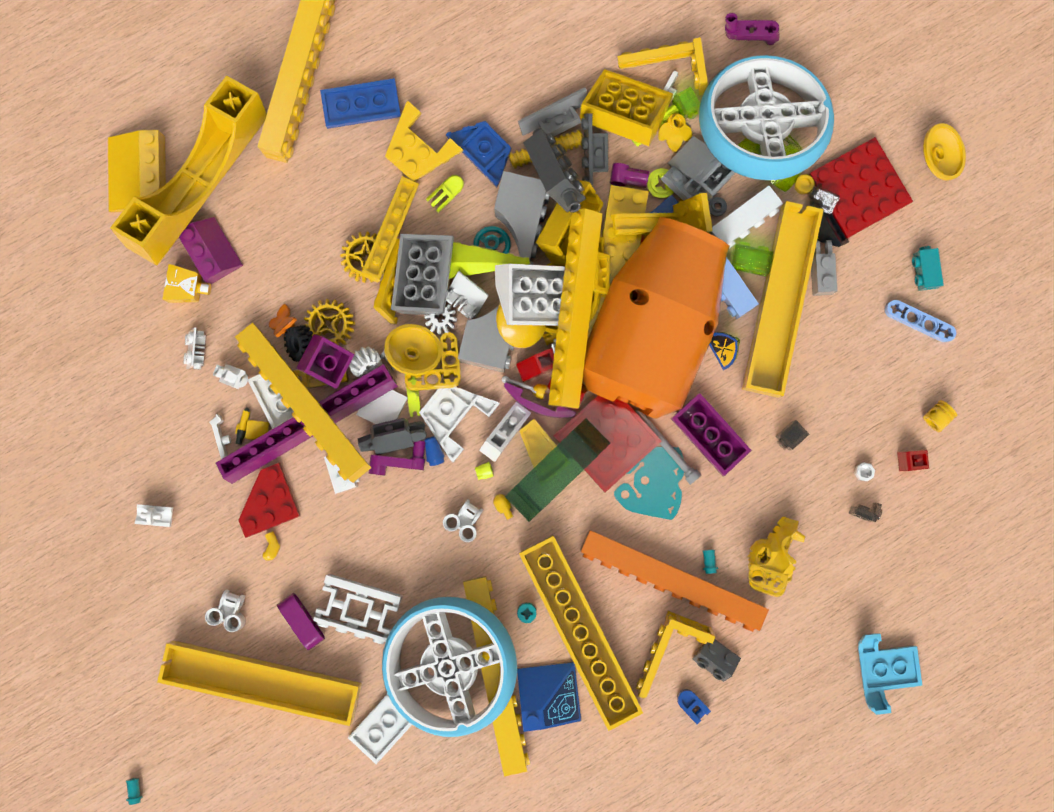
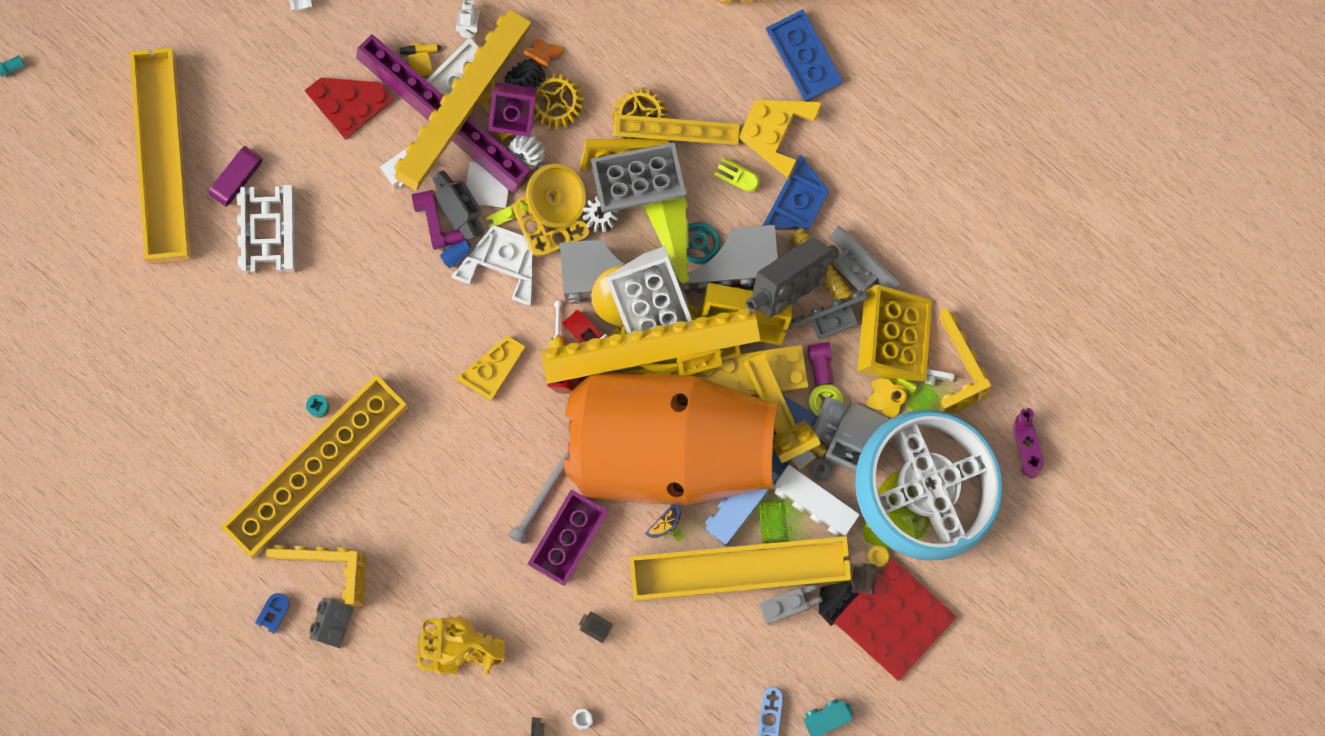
camera: 75 degrees right, 5 degrees down
(220, 440) = (397, 32): white piece -> none
(228, 607) = (226, 98): white piece -> none
(272, 548) = (303, 122): yellow arm -> none
(379, 730) = (150, 296): white tile -> none
(399, 681) = (205, 294): white wheel -> none
(465, 520) = (396, 310): white piece -> none
(467, 295) = (633, 234): white hinge -> none
(484, 471) = (453, 313): neon yellow hose -> none
(503, 505) = (422, 345): yellow cylinder -> none
(505, 431) = (501, 321): white slope -> none
(507, 724) = (241, 394): yellow brick -> none
(516, 393) = (544, 320): magenta slope -> none
(548, 696) = (236, 457): blue slope -> none
(557, 469) = (479, 385): clear green windscreen -> none
(627, 432) = (526, 432): plate -> none
(657, 493) = (502, 506): teal piece -> none
(674, 580) = (400, 549): orange brick -> none
(709, 561) = (432, 582): teal pin -> none
(944, 152) = (968, 703): yellow dish -> none

